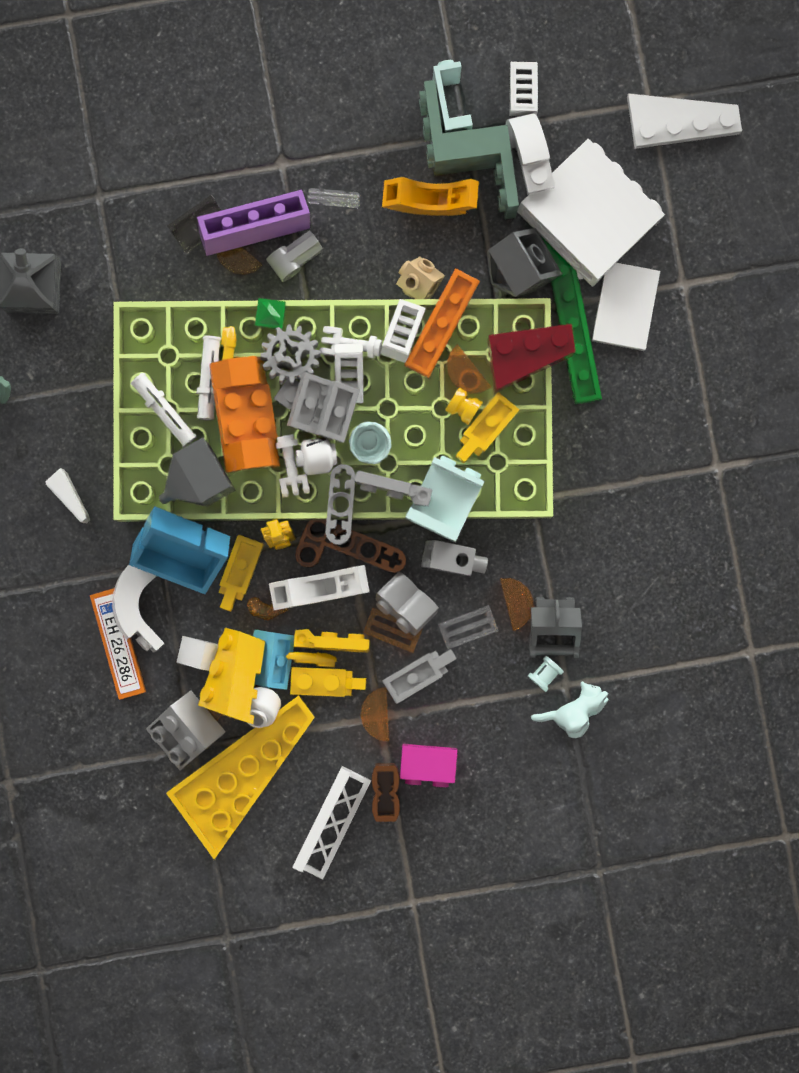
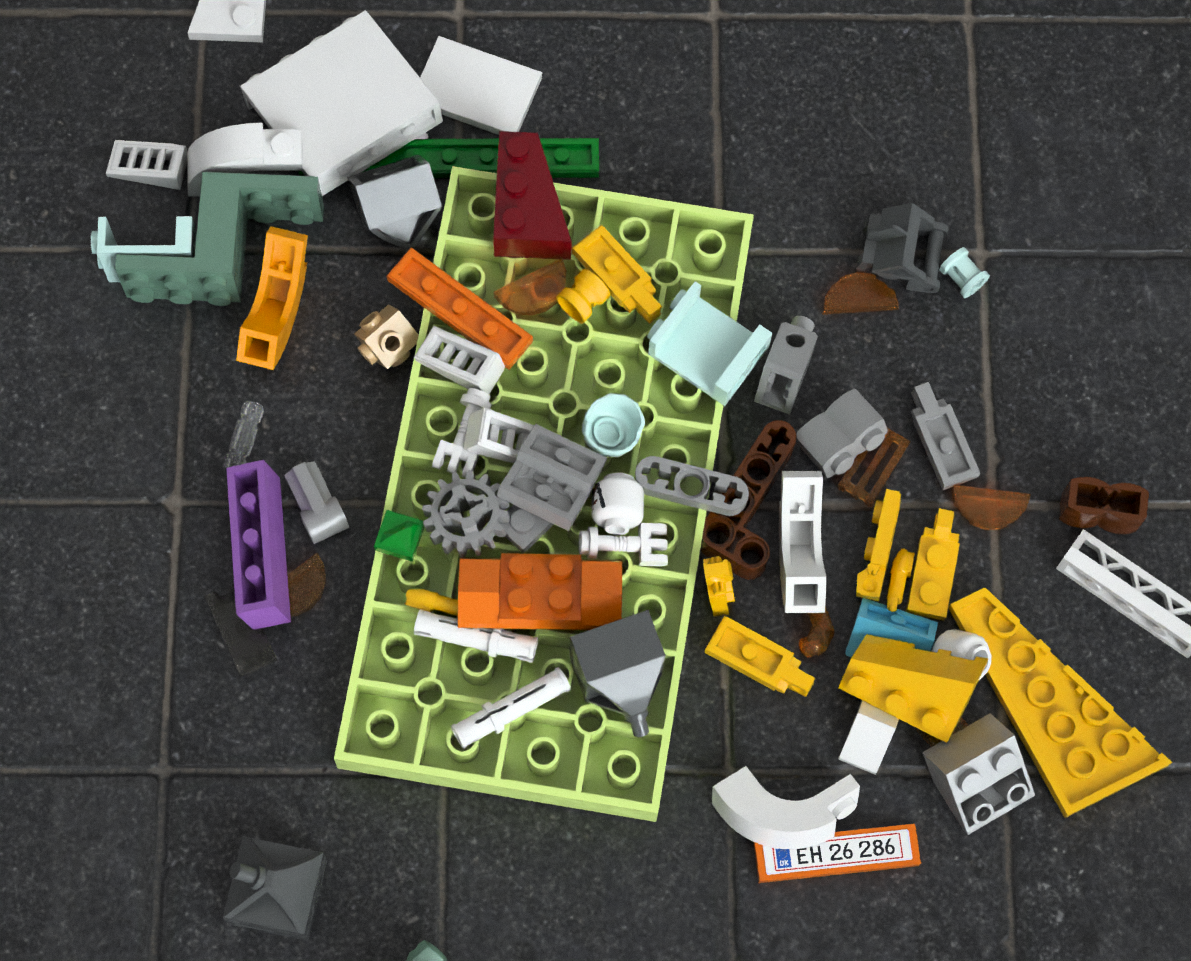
camera: 85 degrees left, 15 degrees down
(64, 489) = (598, 889): white slope -> none
(179, 550) = (719, 723): dark azure piece -> none
(394, 488) = (683, 403): light grey hinge -> none
(428, 764) = (1070, 443): dark pink brick -> none
(490, 619) = (879, 333): clear tile -> none
(575, 715) = (1028, 242): light aqua animal -> none

